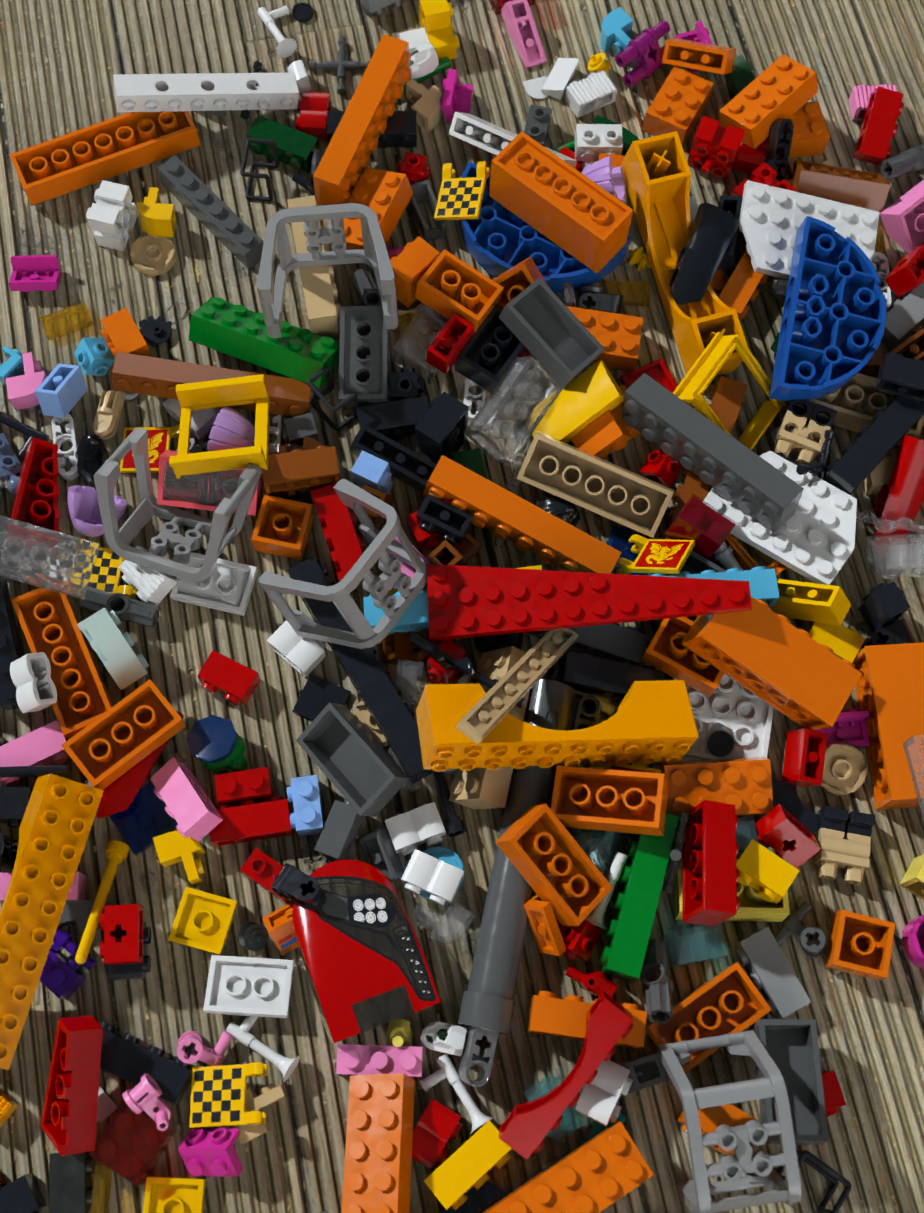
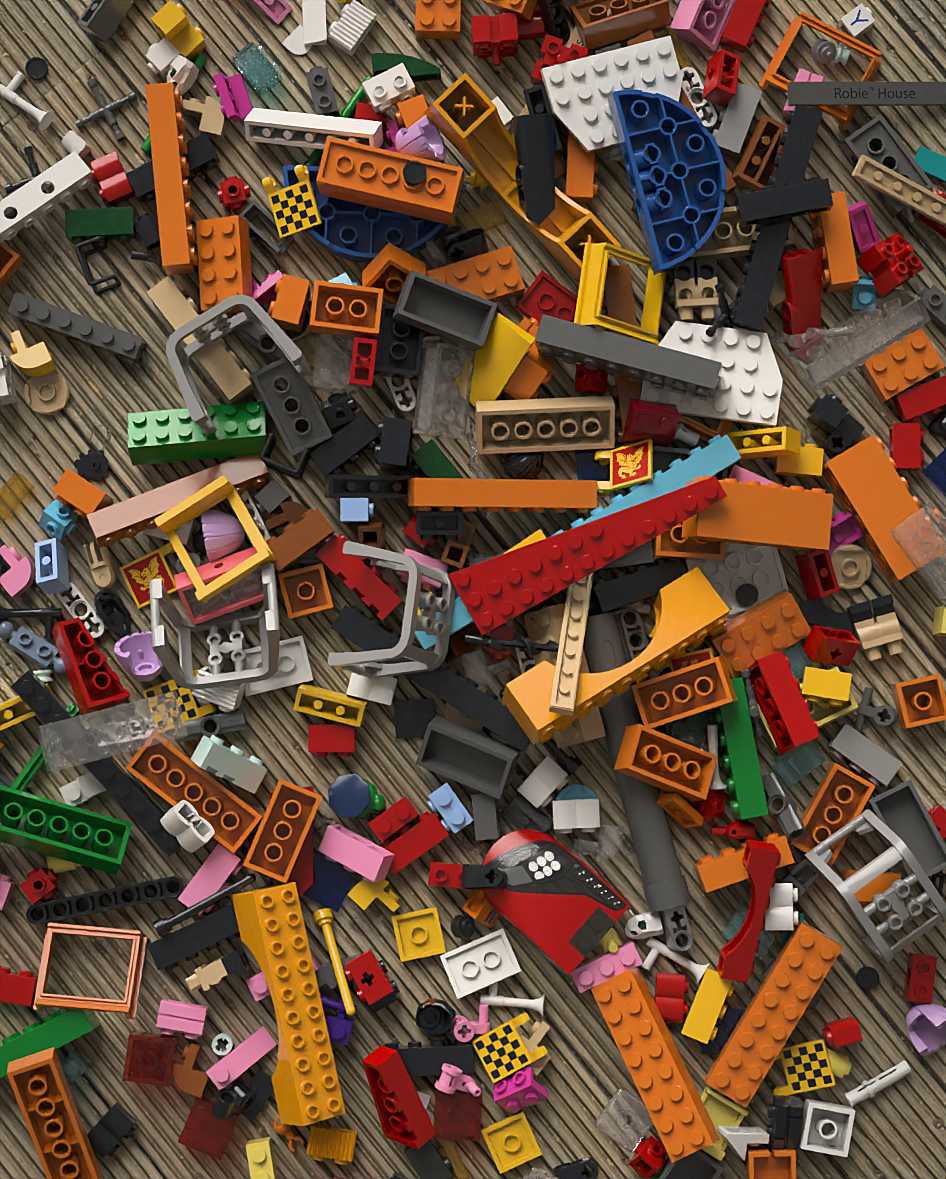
camera: 25 degrees left, 15 degrees up
(169, 1019) = (435, 1017): none -> black hair
(245, 643) = (330, 705): none -> yellow brick
(489, 88) = (257, 69): none -> clear light blue brick
(586, 193) = (414, 172): none -> black piece

